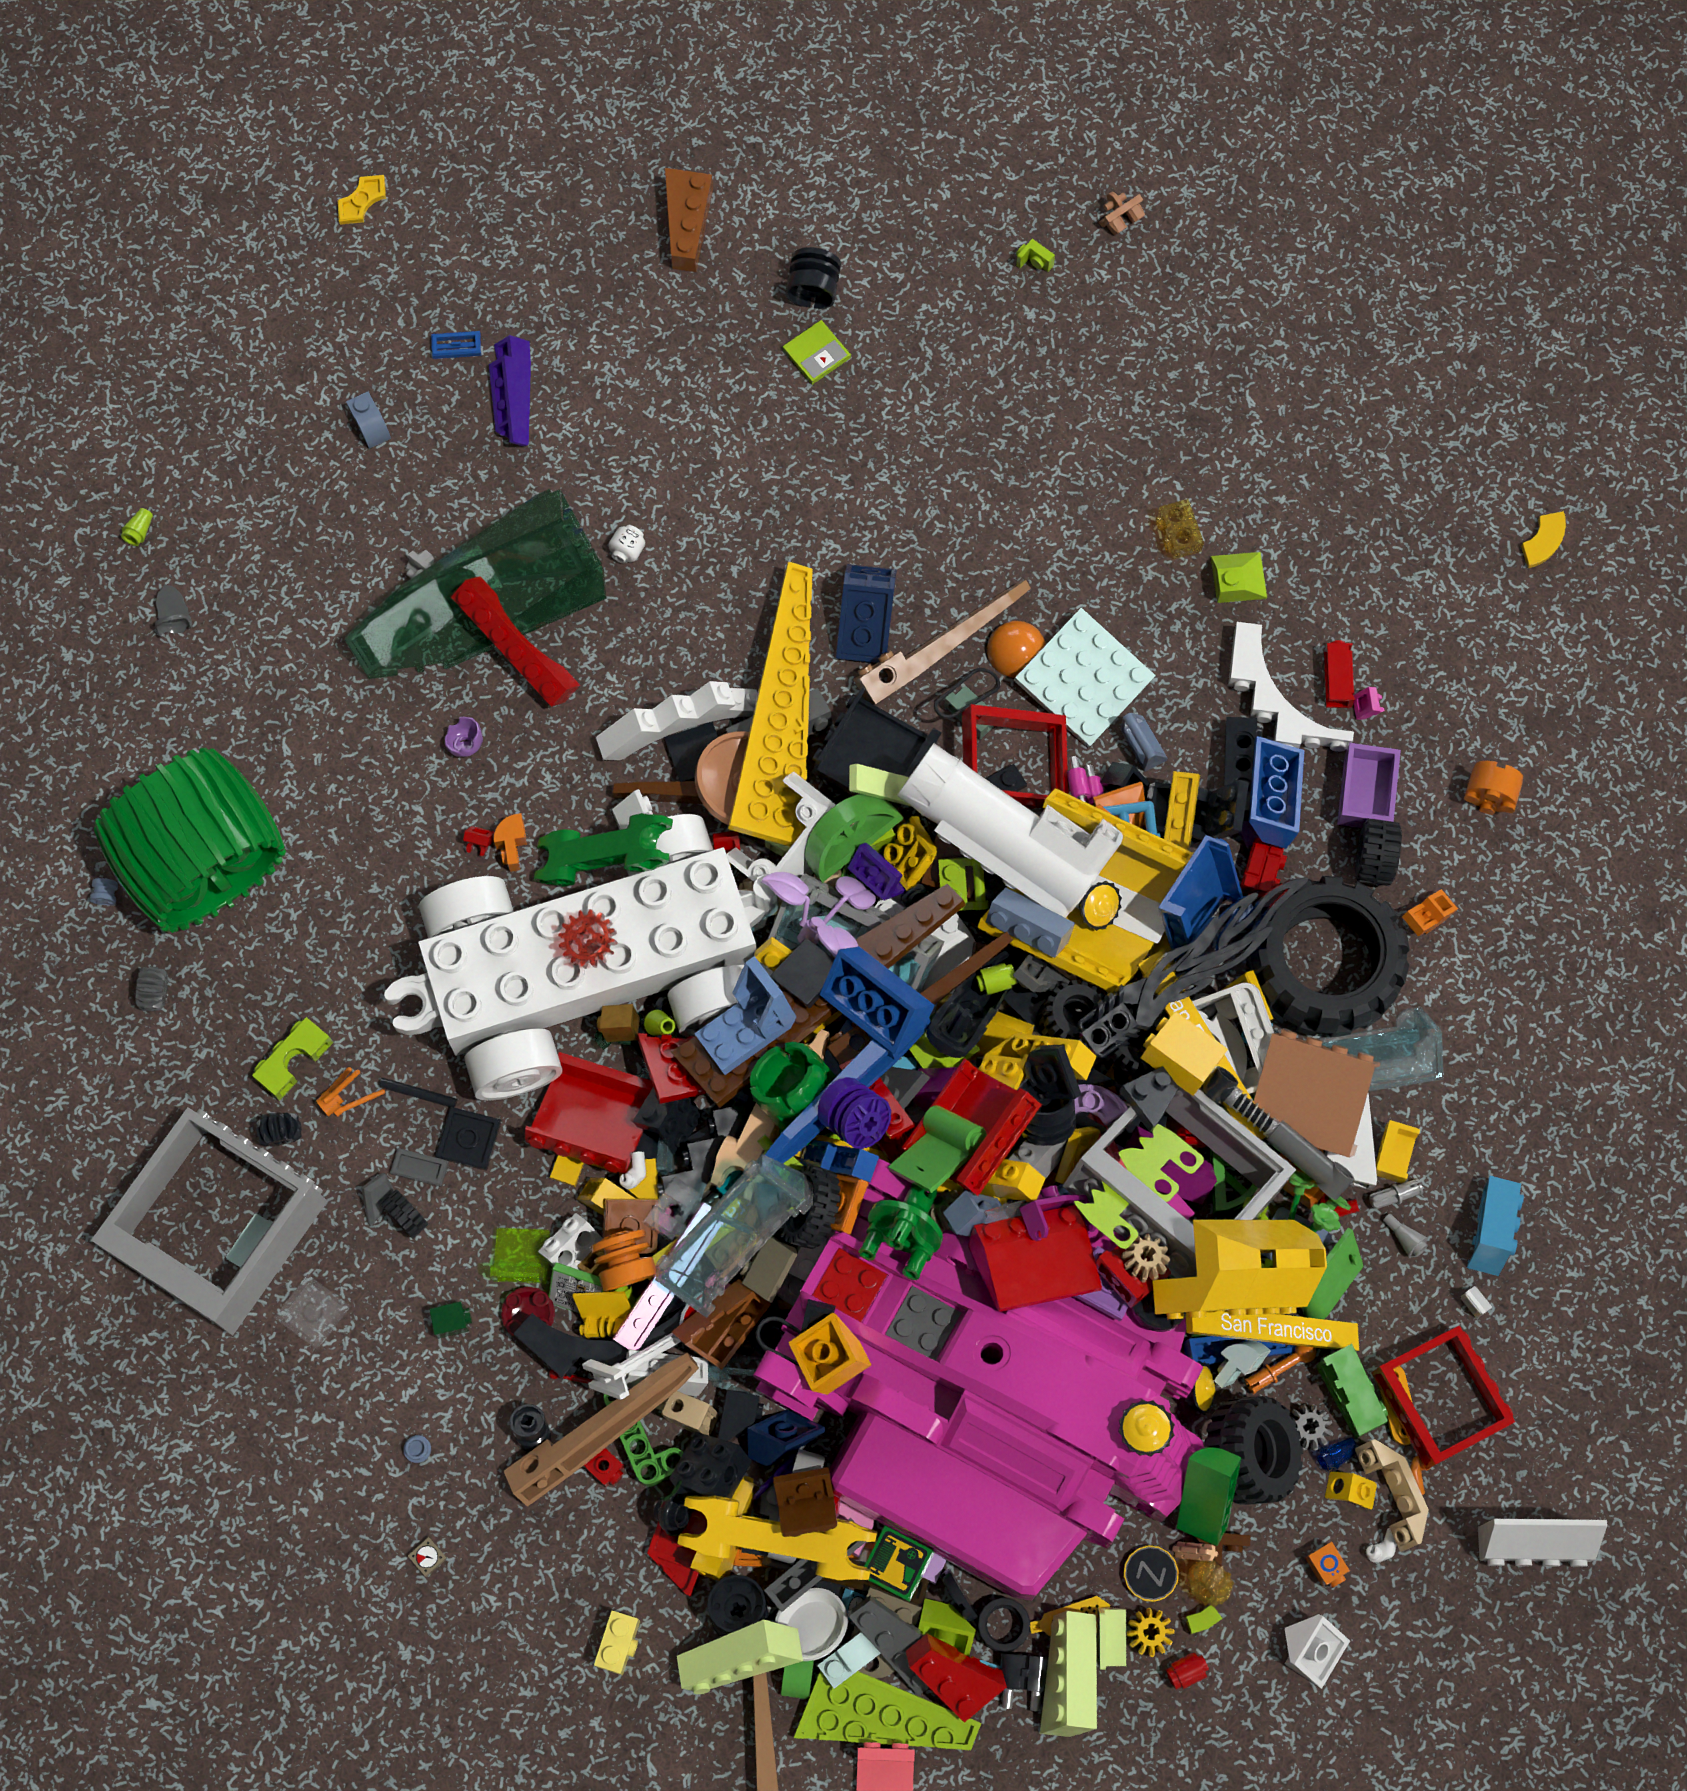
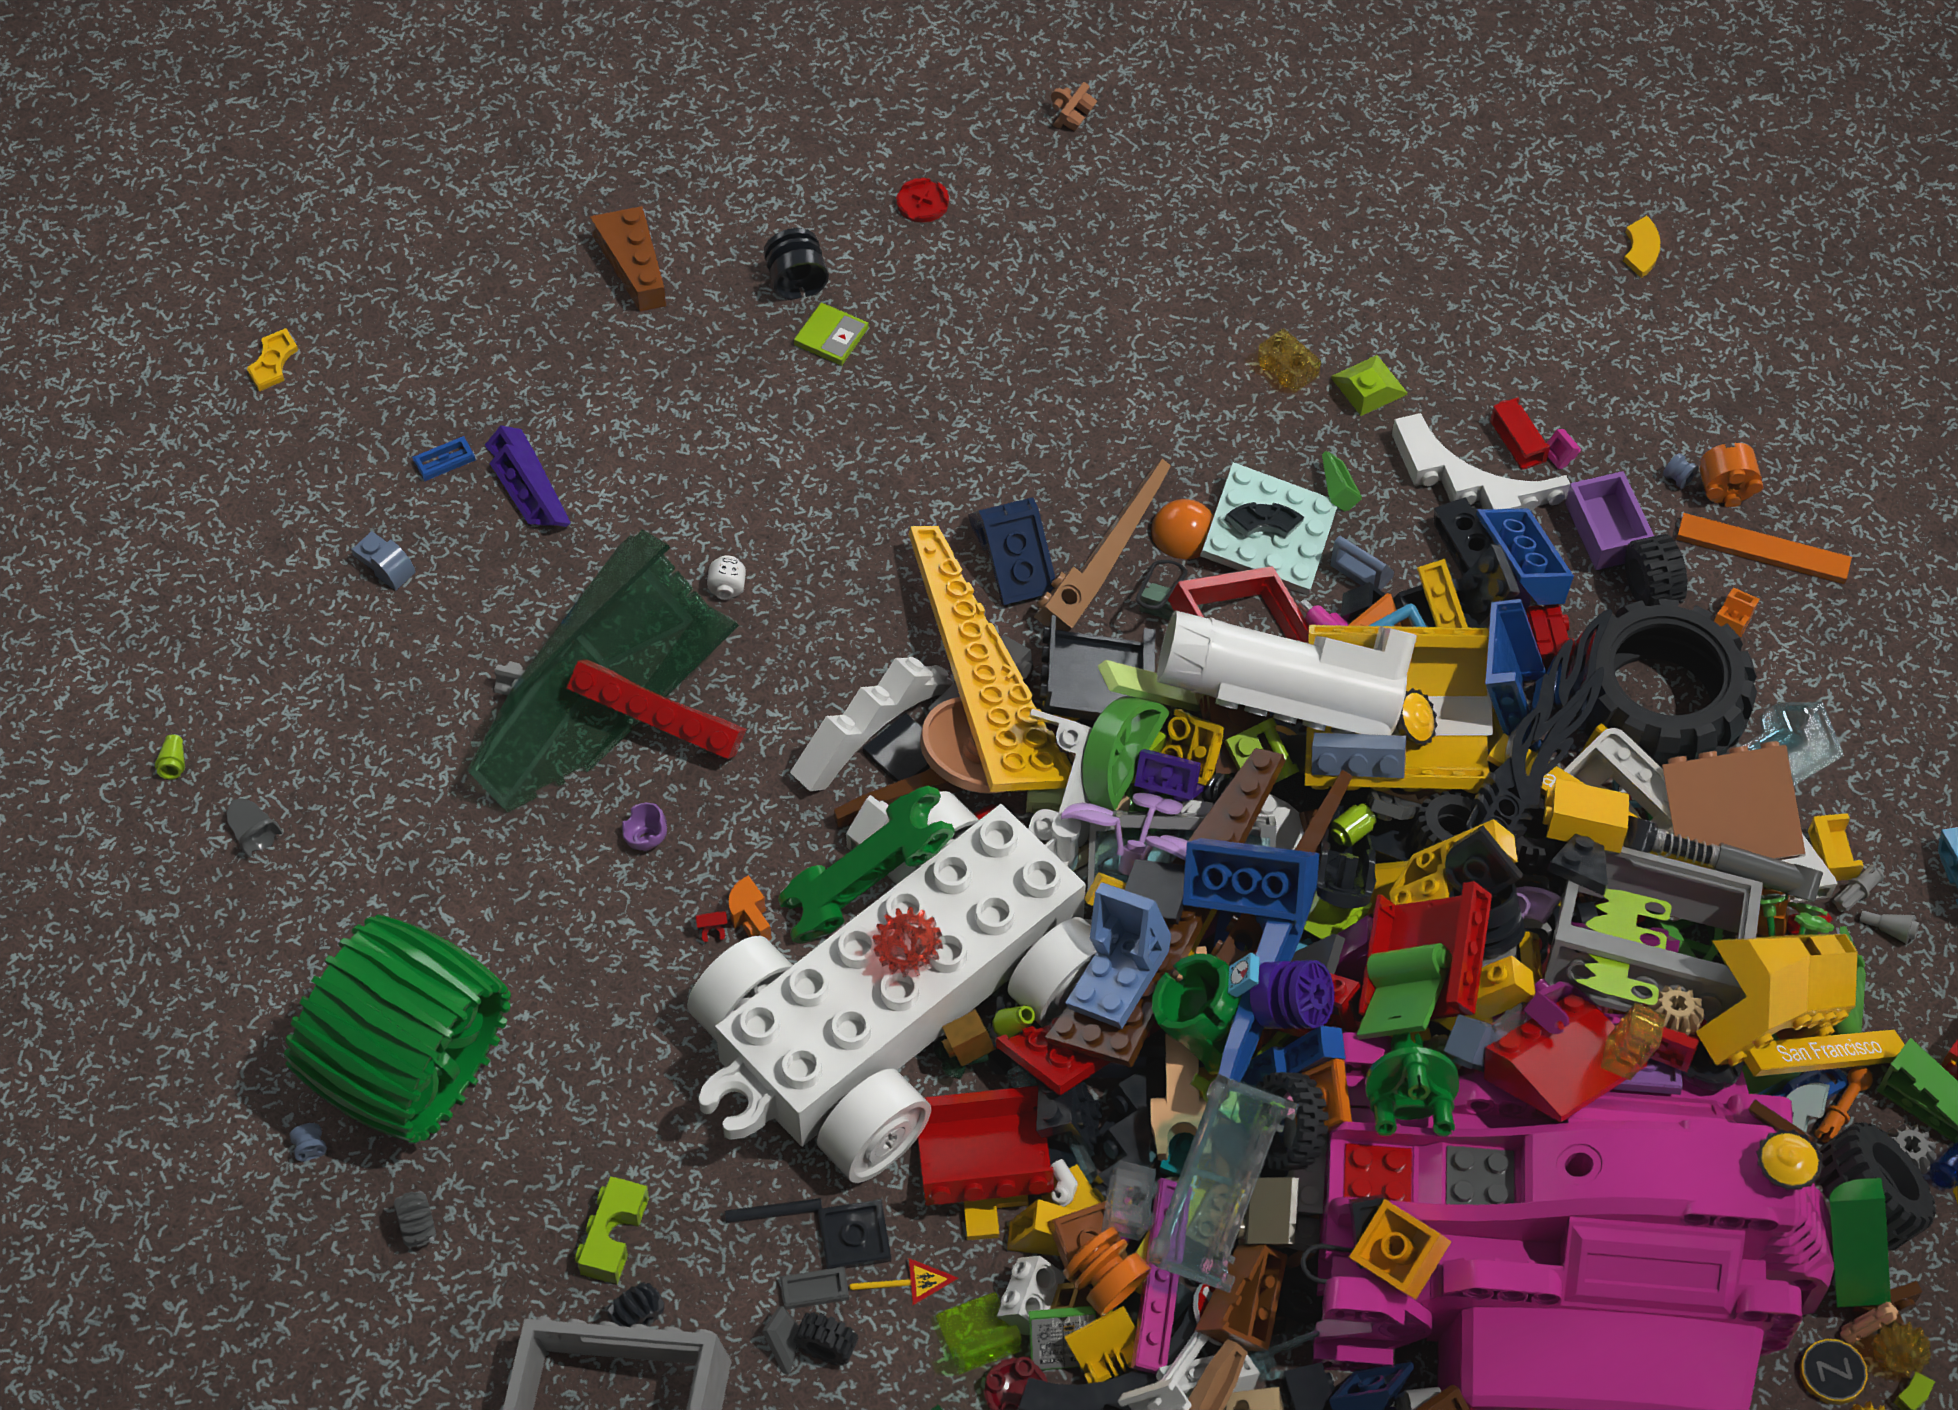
camera: 25 degrees left, 15 degrees down
(331, 1100) = (678, 1256): orange plant -> none
(502, 1198) = (923, 1281): none -> piece
(822, 1082) = (1243, 975): none -> medium azure tile
(952, 253) = (922, 200): none -> red tile
(1038, 255) = (1009, 169): lime bracket -> none
(1080, 669) = (1264, 517): none -> black tile
(1089, 1272) = (1633, 1041): none -> clear yellow brick
(1164, 659) = (1339, 482): none -> bright green slope
(1171, 1389) = (1772, 1119): none -> reddish brown tile
(1457, 764) = (1680, 470): none -> sand blue wheel
(1490, 863) = (1764, 548): none -> orange tile

